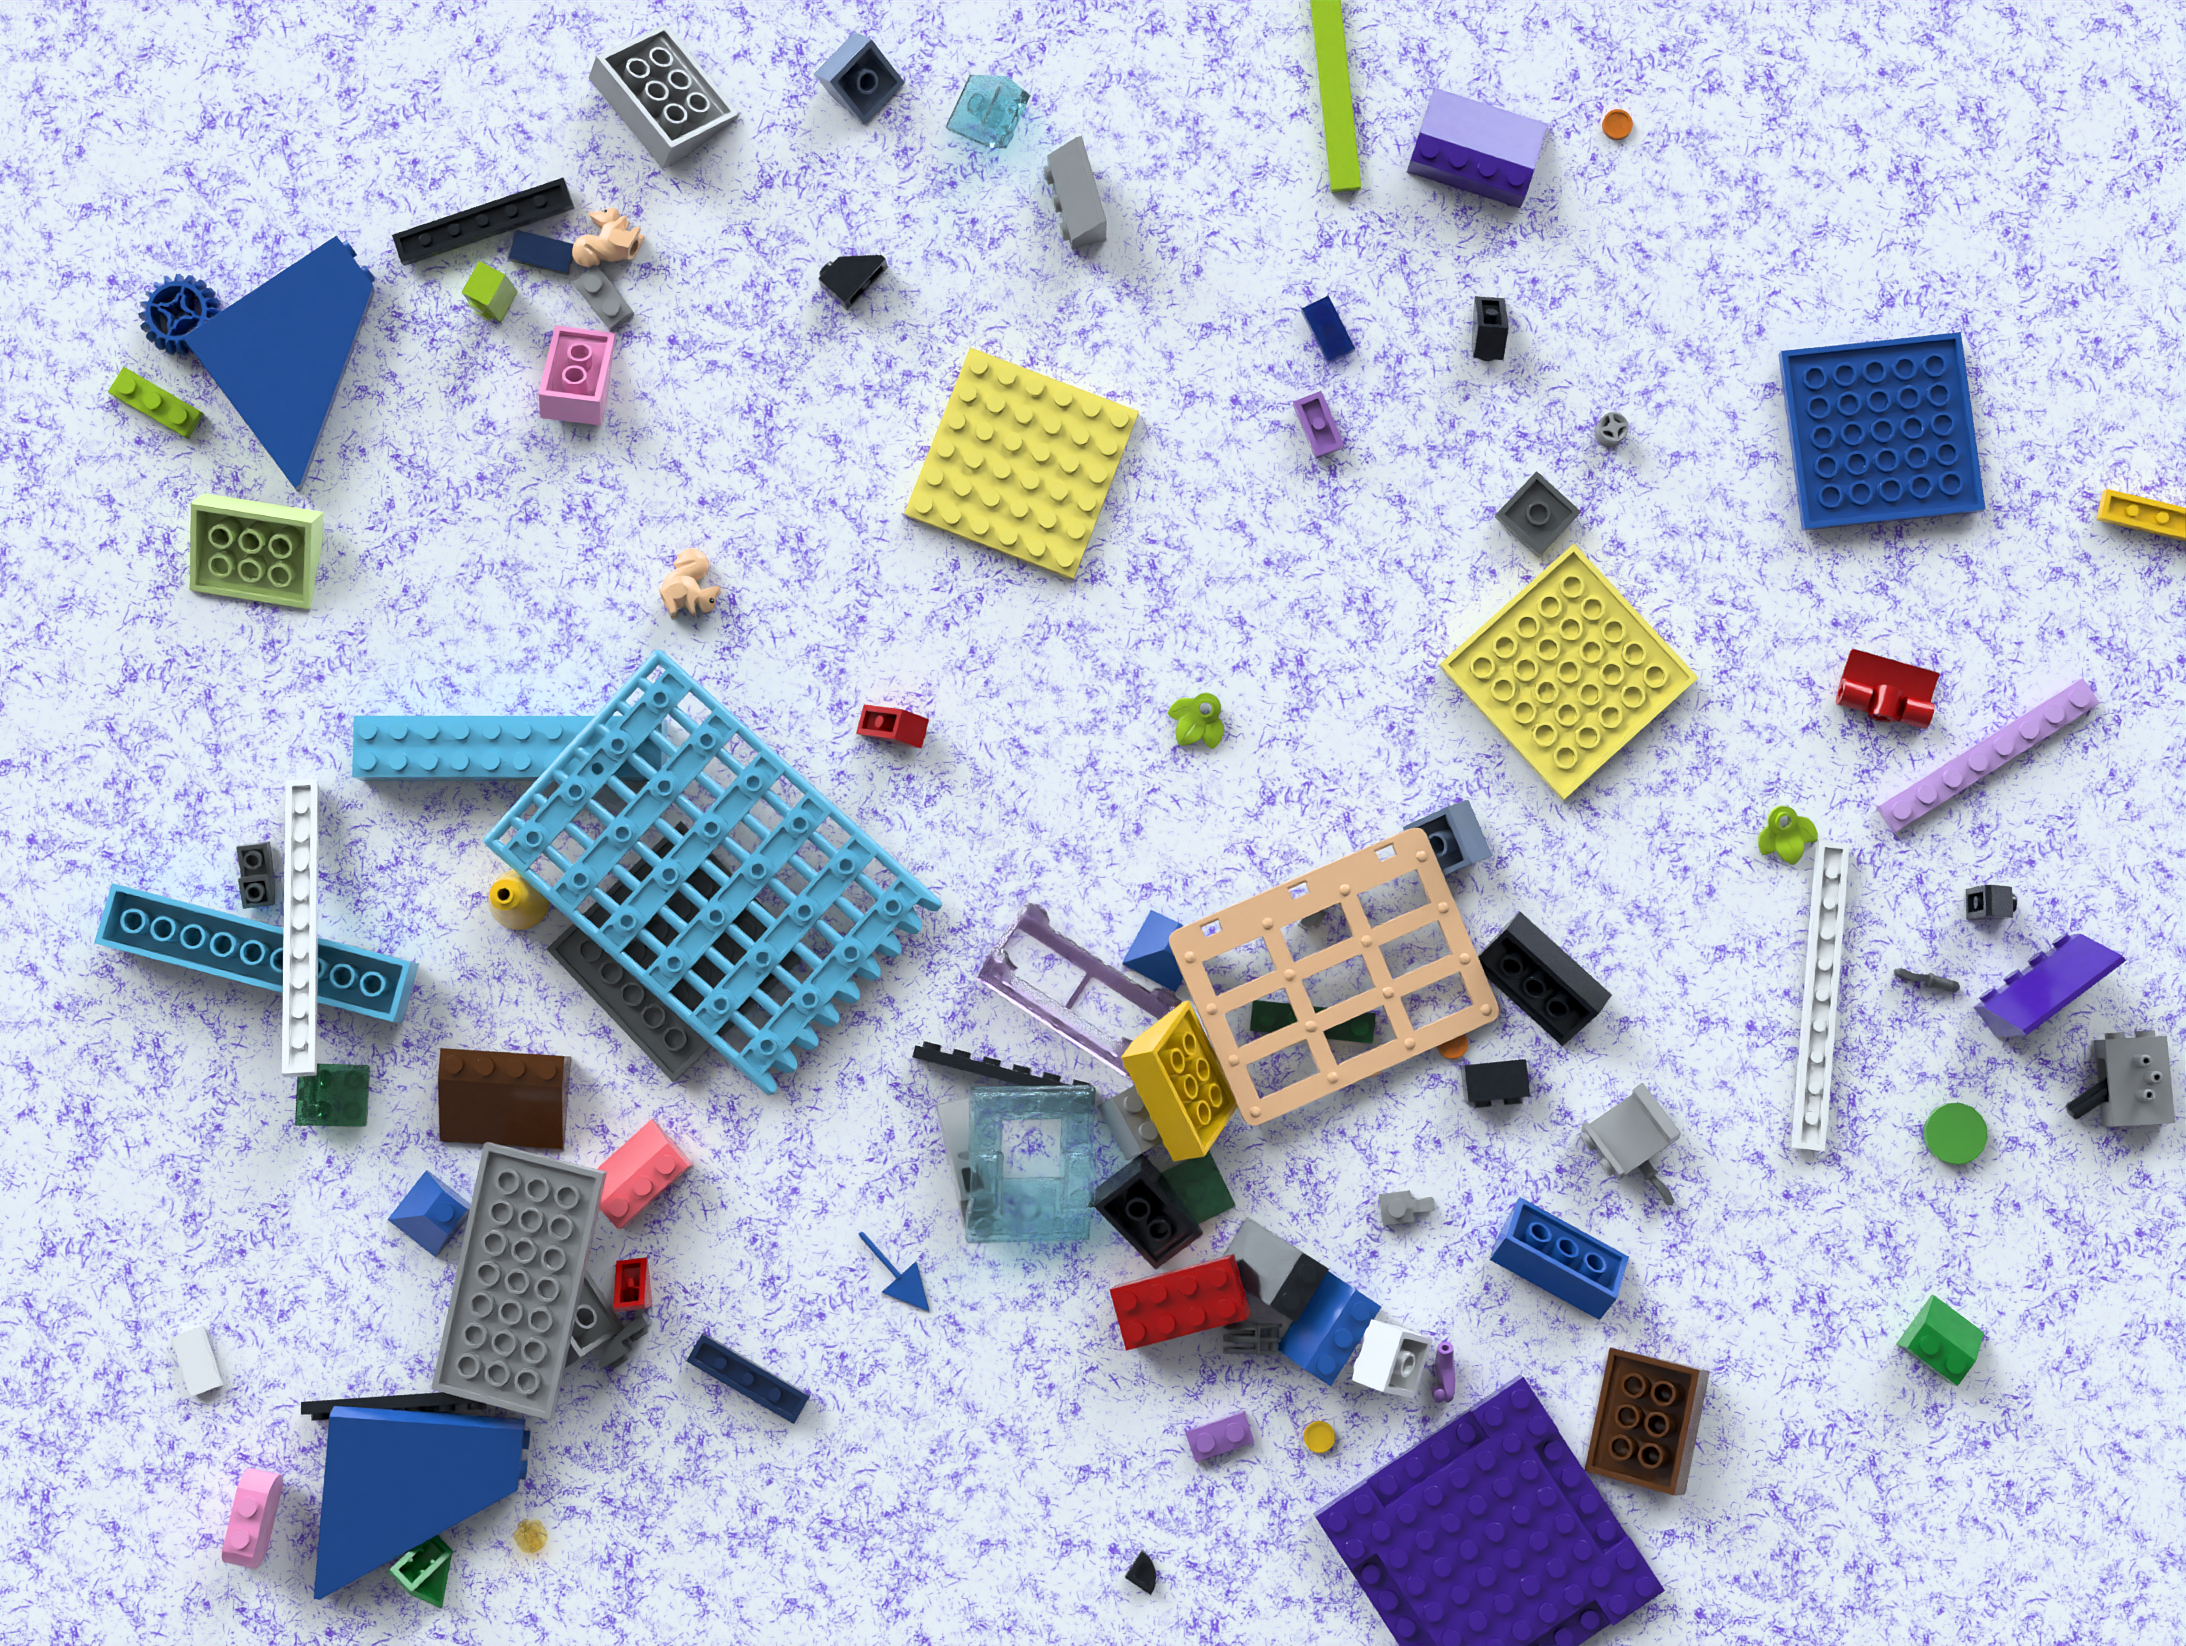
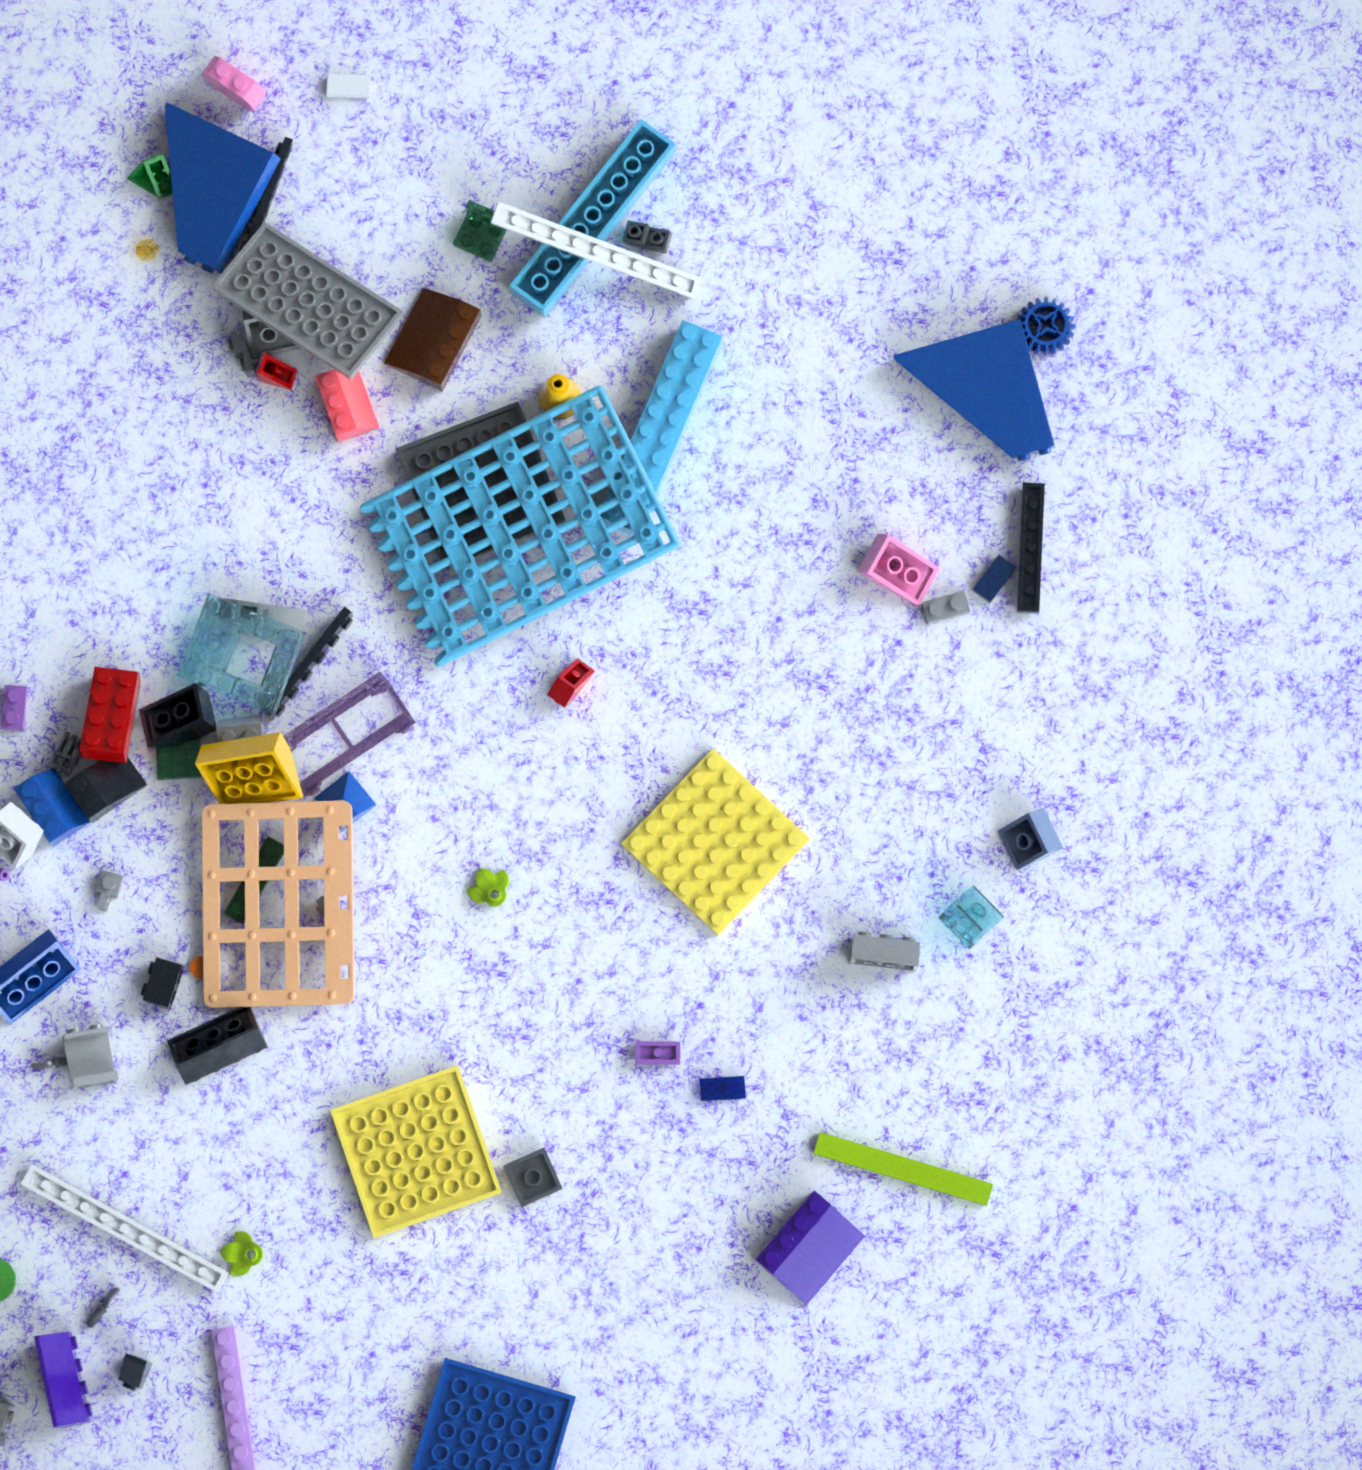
camera: 115 degrees right, 5 degrees down
(155, 402) = (993, 288): lime plate -> none
(254, 550) = (864, 315): yellowish green slope -> none
(431, 1213) = (379, 265): blue slope -> none
(489, 292) = (975, 530): lime brick -> none
(612, 243) = (980, 628): light nougat animal -> none
(662, 94) = (1072, 701): light grey slope -> none
(681, 585) = (723, 581): light nougat animal -> none
(748, 1378) = (185, 422): dark blue plate -> none
(851, 276) = (890, 775): black slope -> none
(907, 1285) = (200, 547): blue piece -> none
(1454, 837) = (336, 1023): sand blue slope -> none
(1489, 328) = (676, 1199): black slope -> none
(1613, 423) = (567, 1253): light grey wheel -> none
(1617, 124) = (786, 1355): orange piece -> none
(1887, 689) = (310, 1367): red panel -> none

